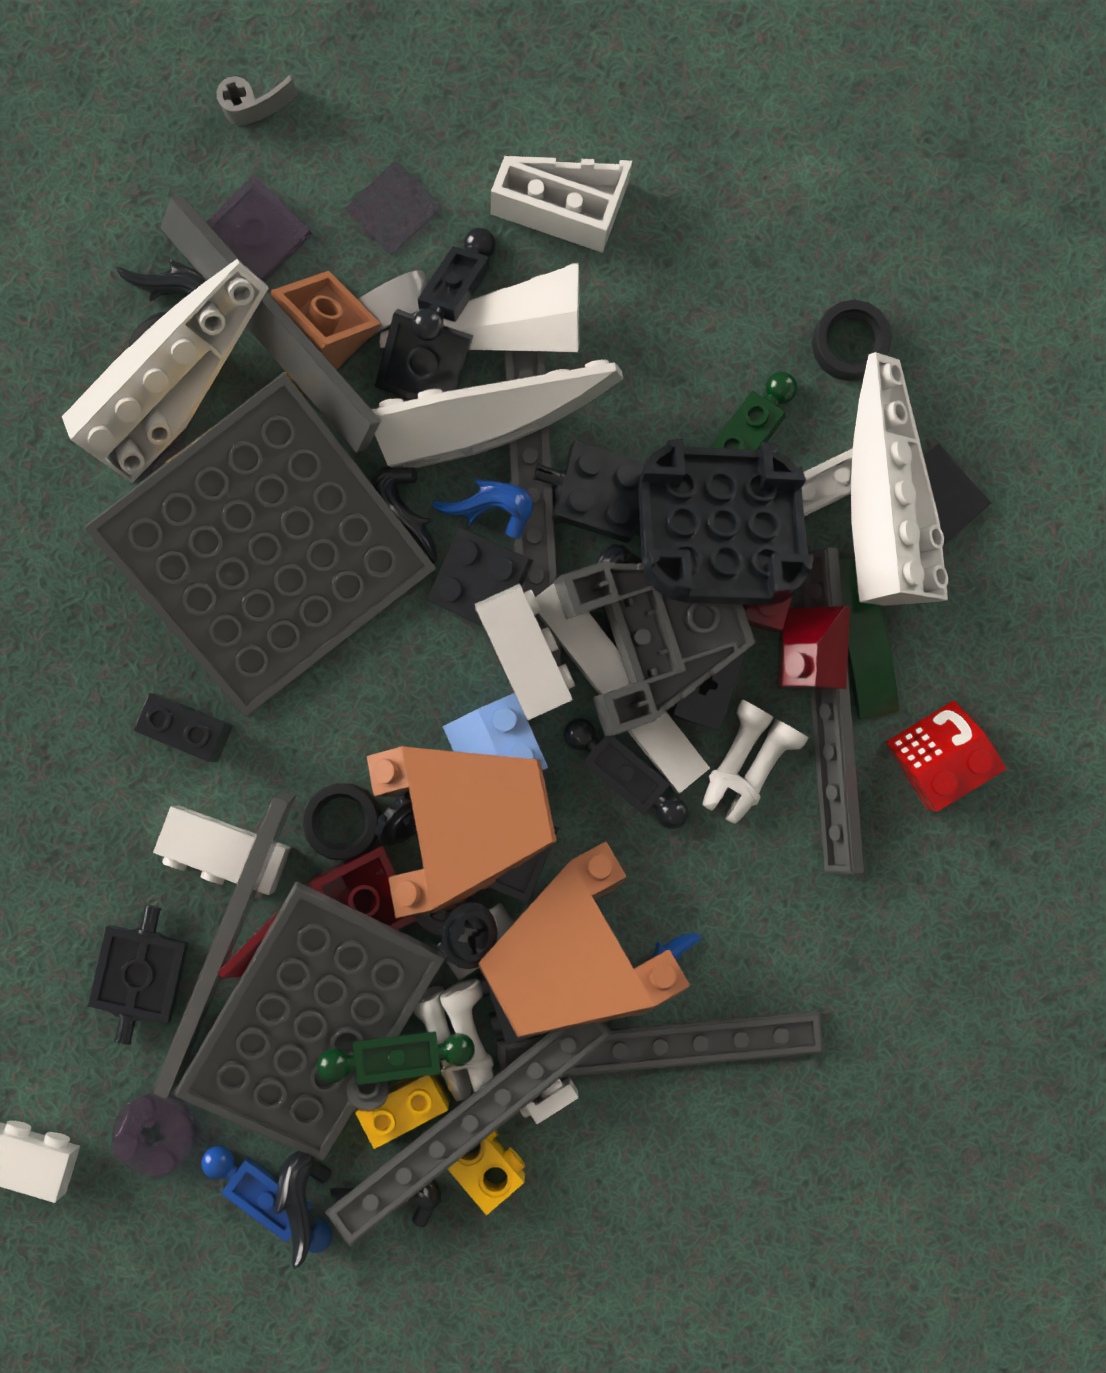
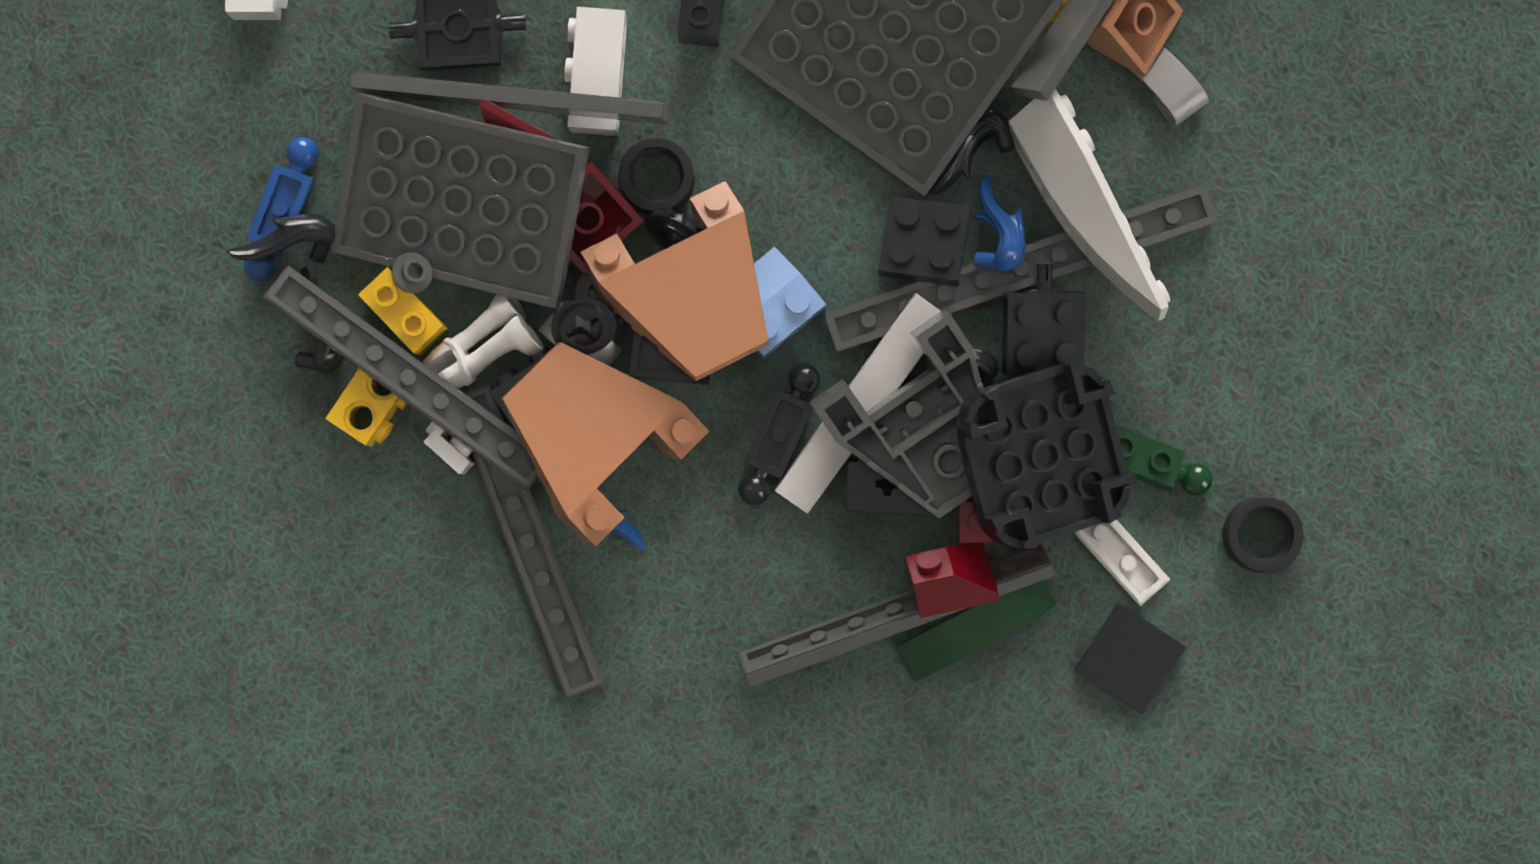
camera: 80 degrees right, 0 degrees up
(131, 1142) = (294, 99): clear purple plate -> none
(393, 208) = (1262, 54): clear purple piece -> none
(395, 1057) = (449, 289): dark green plate -> none
(421, 365) = (1123, 124): black tile -> none
(453, 284) = (1203, 133): black plate -> none
(524, 317) = (1189, 208): white wedge -> none
(525, 650) = (868, 302): white brick -> none
(561, 197) = (1318, 213): white wedge -> none
(779, 739) = (859, 542): white piece -> none
(892, 498) = (1120, 614): white wedge -> none
(945, 756) = (884, 736): red slope -> none

